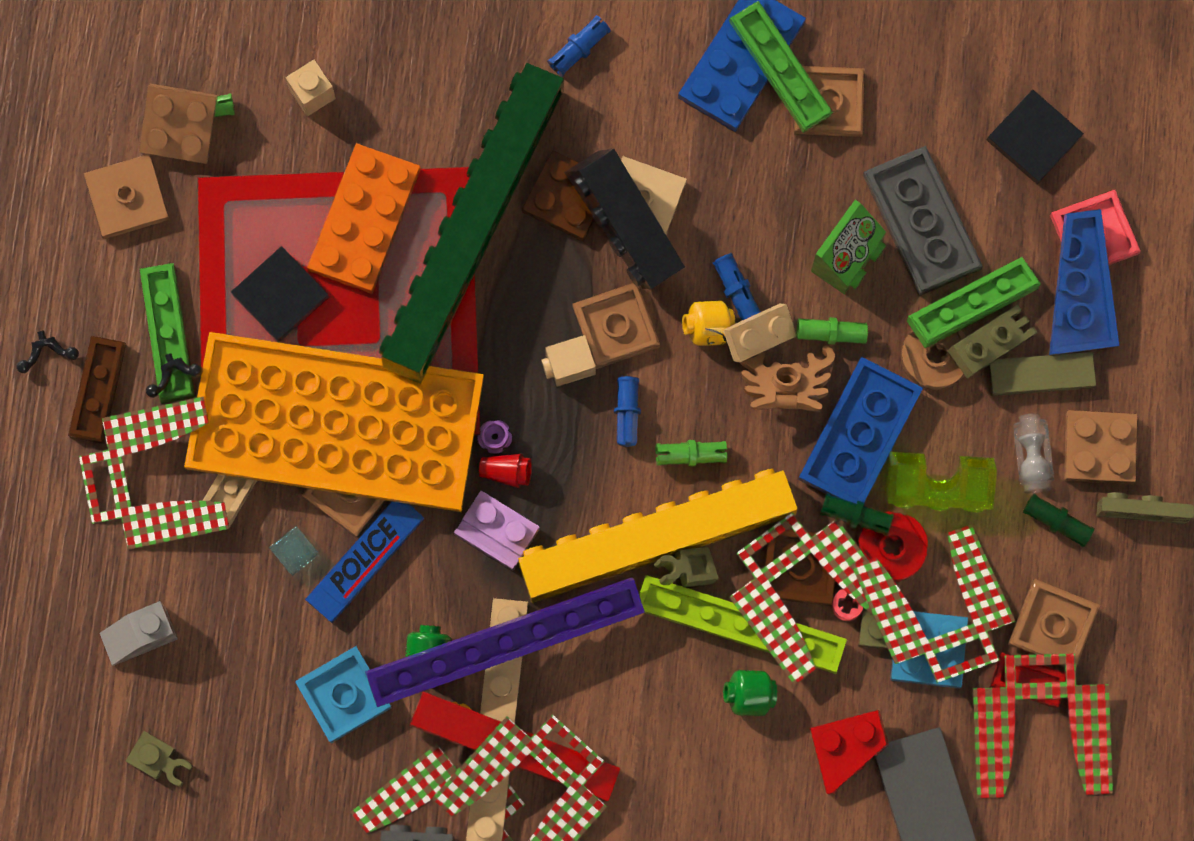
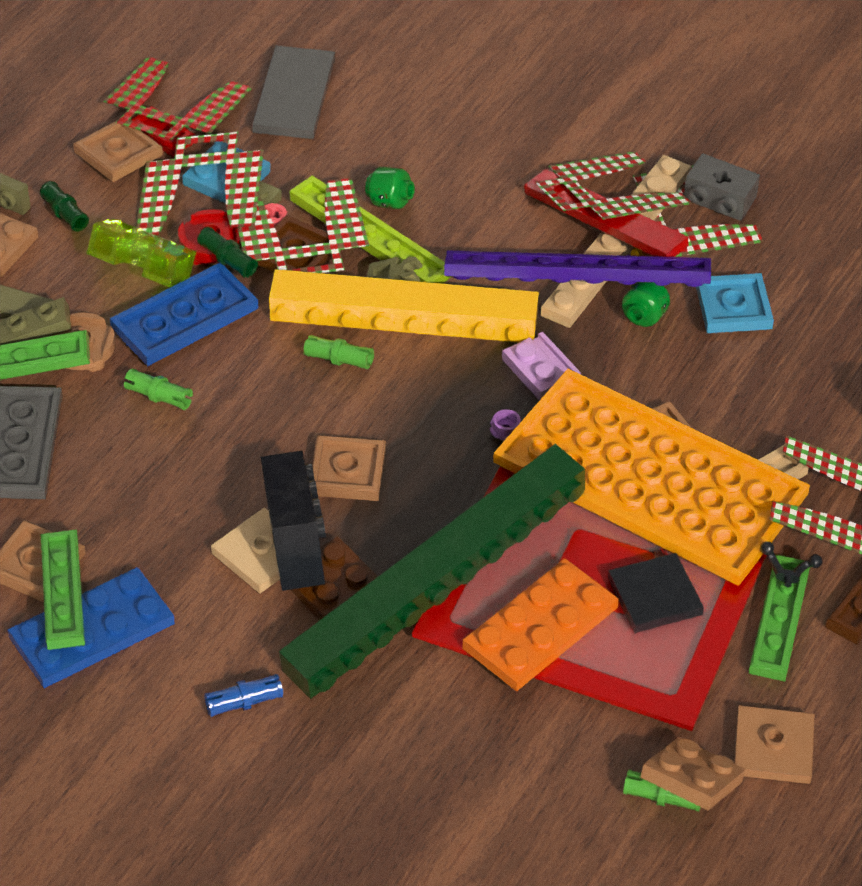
camera: 155 degrees left, 30 degrees down
(294, 550) = (732, 415): clear light blue plate -> none
(310, 88) = (538, 754): tan brick -> none
(364, 559) = (681, 382): blue tile -> none
(507, 469) = (507, 395): red cone -> none
(569, 361) = (407, 448): tan brick -> none
(627, 411) = (375, 401): blue axle -> none
(707, 322) = (263, 428): yellow head -> none
(736, 286) = (220, 449): blue pin -> none
(760, 332) = (233, 399): tan plate -> none
(787, 384) = (223, 359): medium nougat animal -> none
(847, 746) = (332, 136): red wing -> none
(849, 249) = (104, 433): slope -> none
(1036, 471) = (58, 238): clear piece -> none

